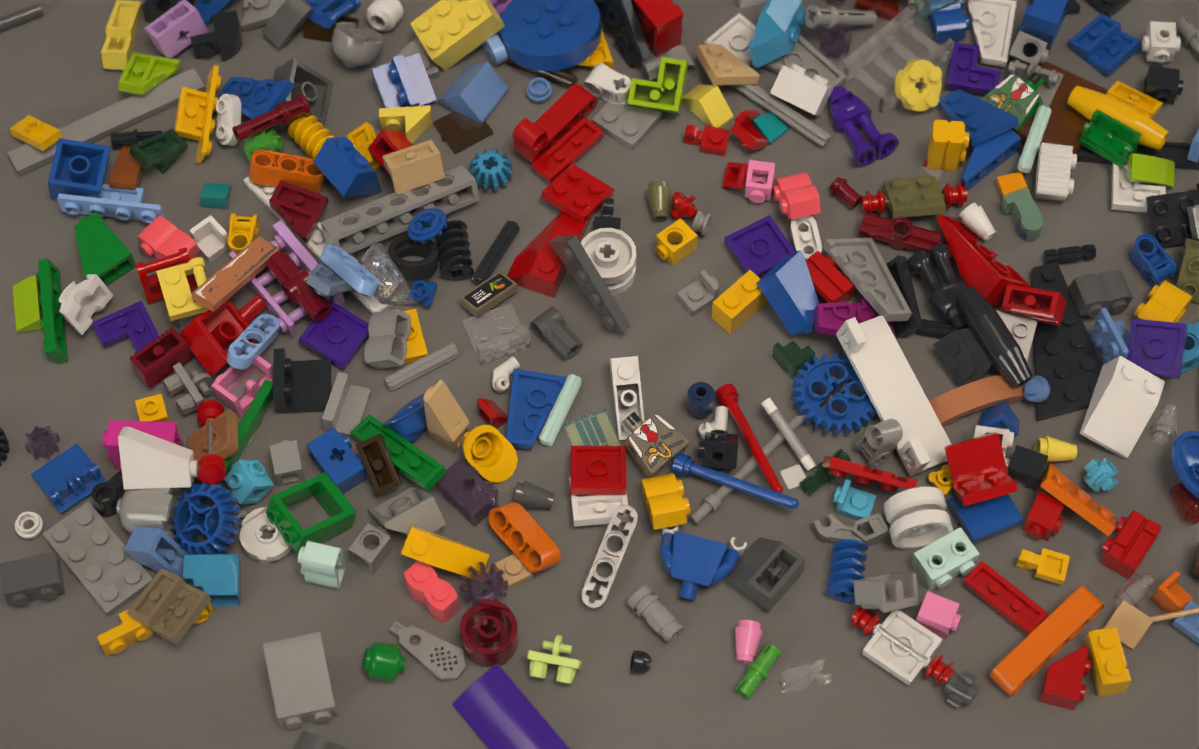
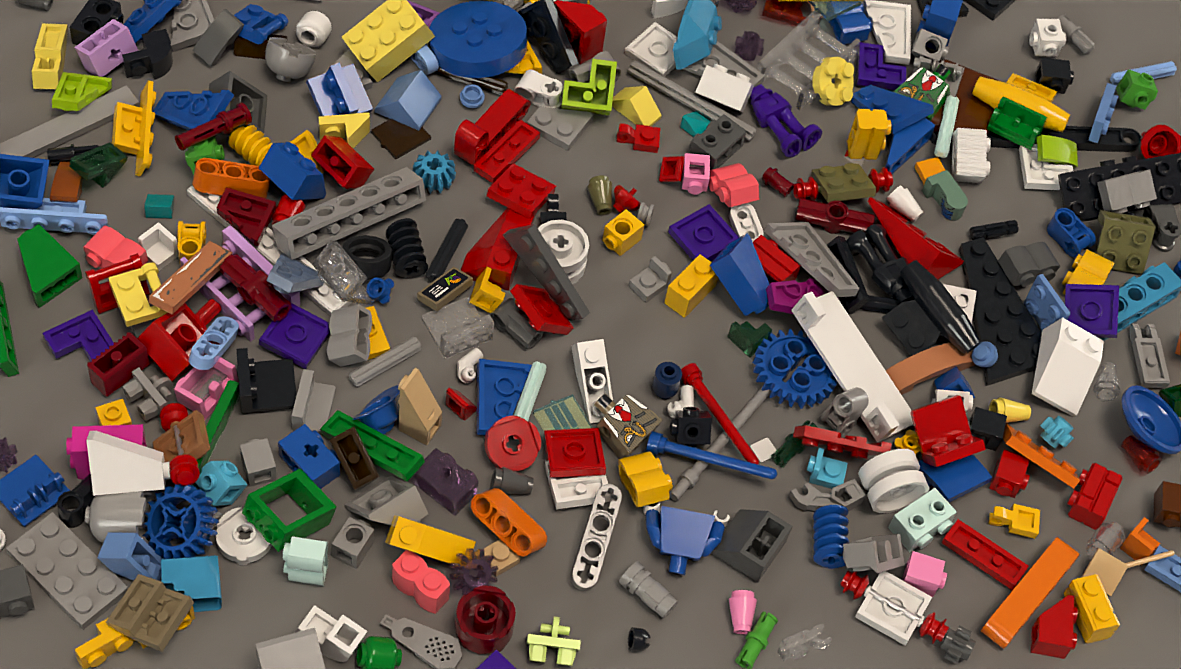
camera: 15 degrees left, 5 degrees down
(82, 300) = (32, 311): white cylinder -> none
(228, 115) = (166, 128): white plate -> none
(339, 205) = (287, 208): none -> red brick
(342, 640) = (335, 637): none -> white brick
(349, 270) = (307, 268): light blue beam -> none
(414, 166) = (362, 168): tan panel -> none
(431, 218) = (386, 220): blue gear -> none
(490, 453) = (463, 441): yellow piece -> none
(529, 300) = (486, 294): none -> yellow panel
(544, 443) = (519, 429): none -> red plate
(581, 321) = (541, 309): none -> red plate
(724, 66) = (648, 69): tan wing -> none
(748, 135) = (673, 125): red bracket -> none
(788, 148) = (719, 140): none -> dark grey brick
(788, 434) = (755, 408): light grey bar -> none
(831, 17) = (745, 21): light grey pin -> none
(1034, 304) = (973, 274): red brick -> none
(1104, 44) = (994, 42): blue slope -> none

